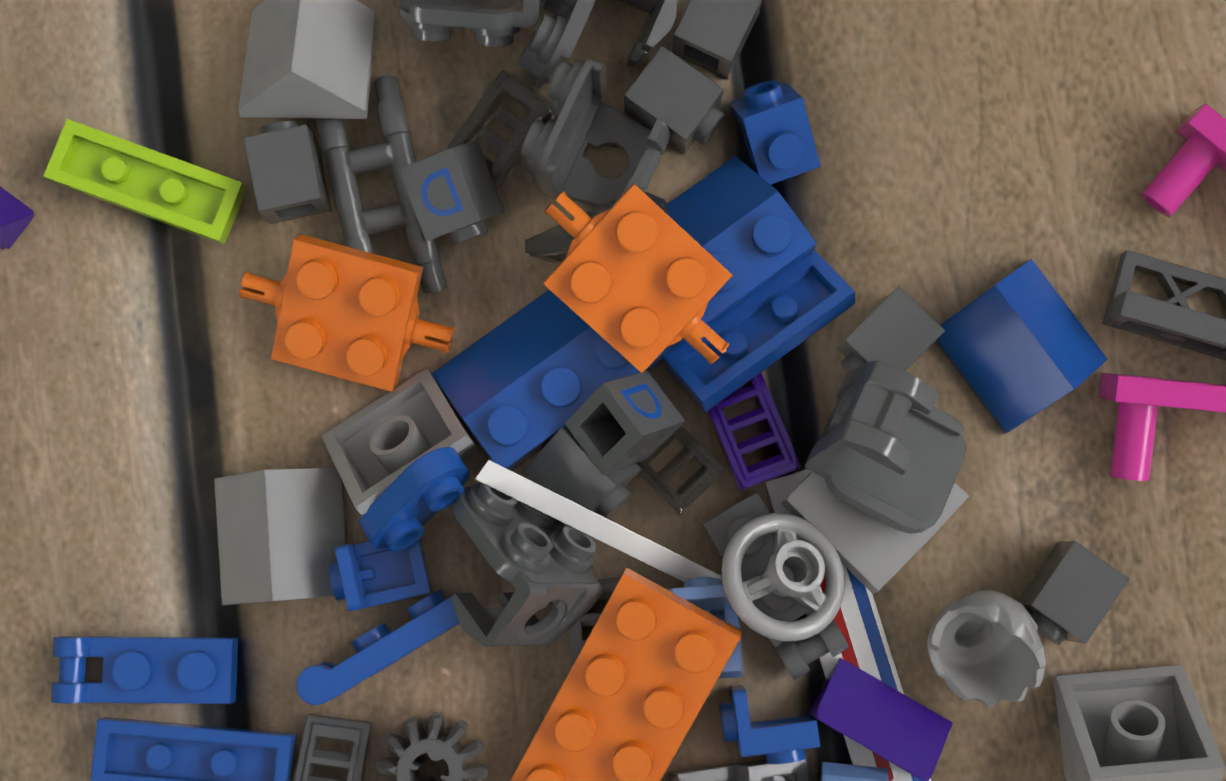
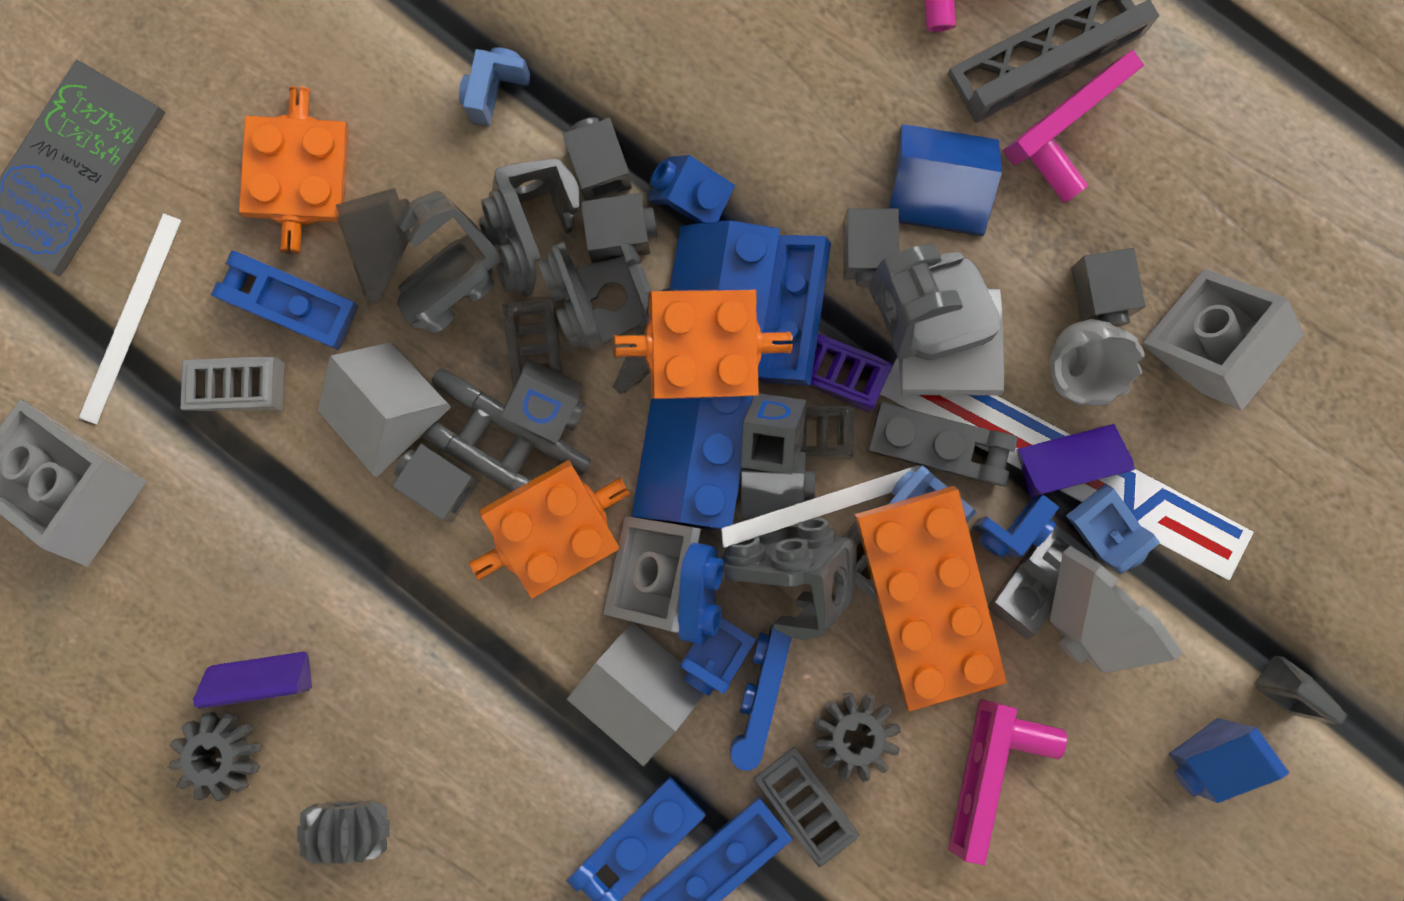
camera: 45 degrees left, 0 degrees up
(145, 181) = (355, 569): lime plate -> none
(808, 562) = (952, 410): light grey piece -> none

